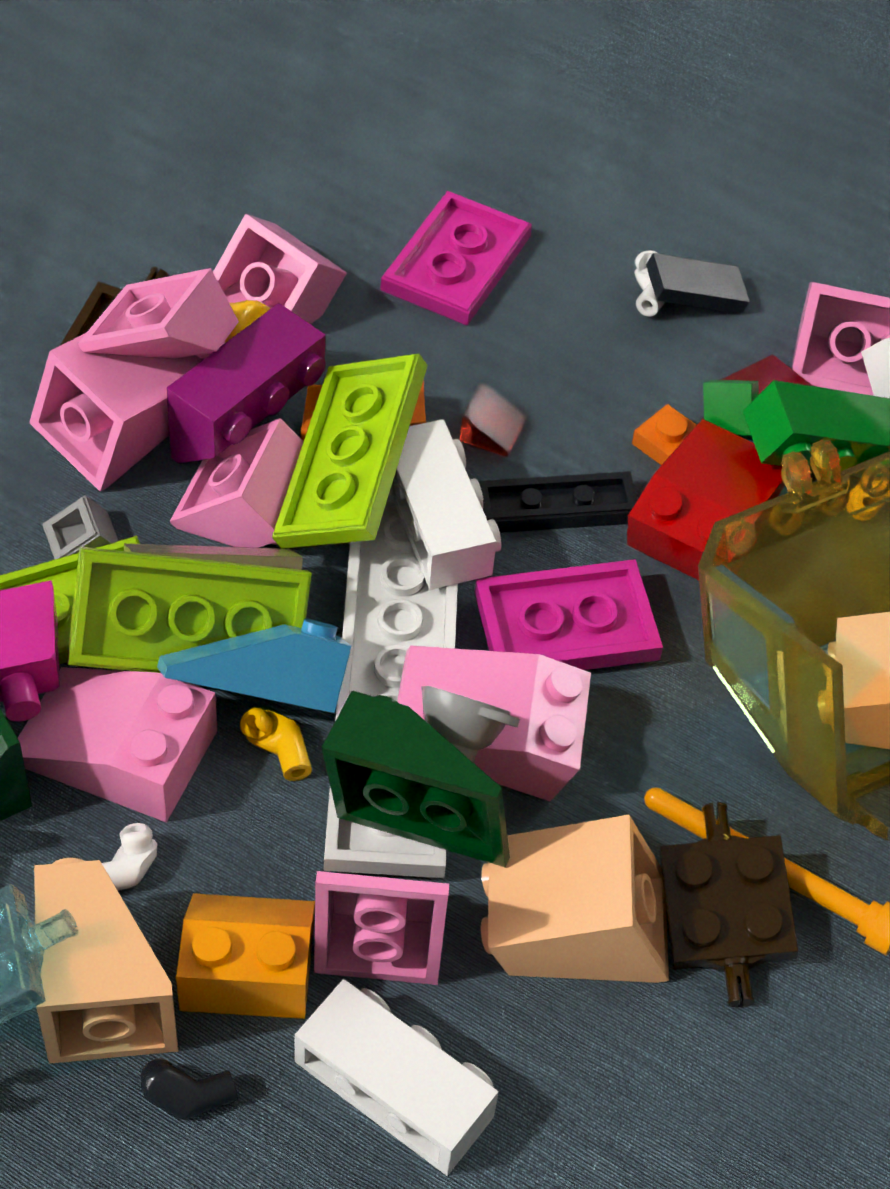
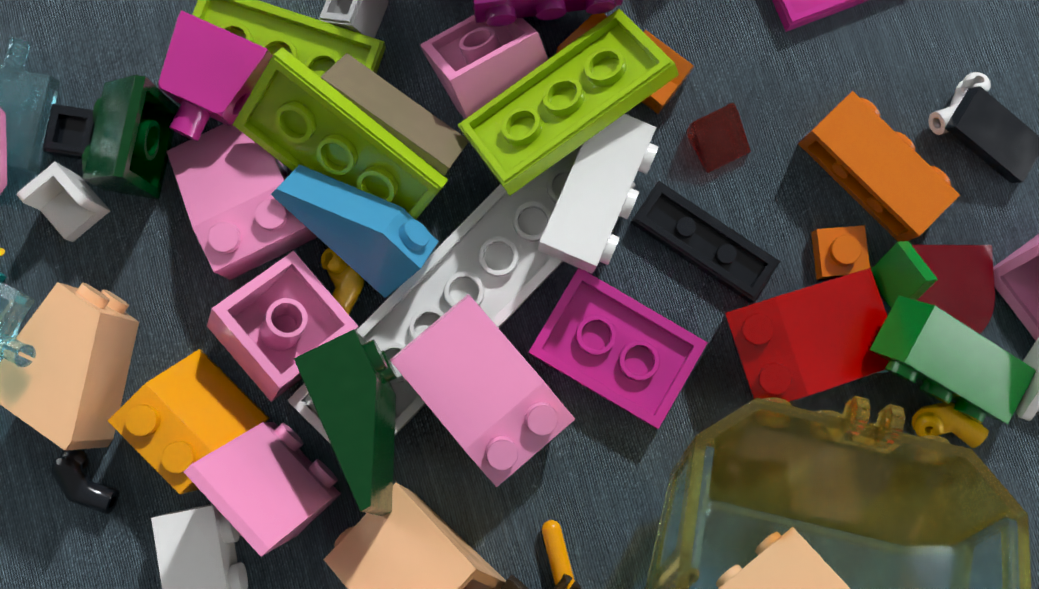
camera: 40 degrees right, 30 degrees up
(132, 857) = (172, 297): white arm -> none
(259, 804) = (277, 320): none -> bright pink slope
(464, 721) = (432, 400): light grey piece -> none
(635, 359) = (879, 168): none -> orange brick

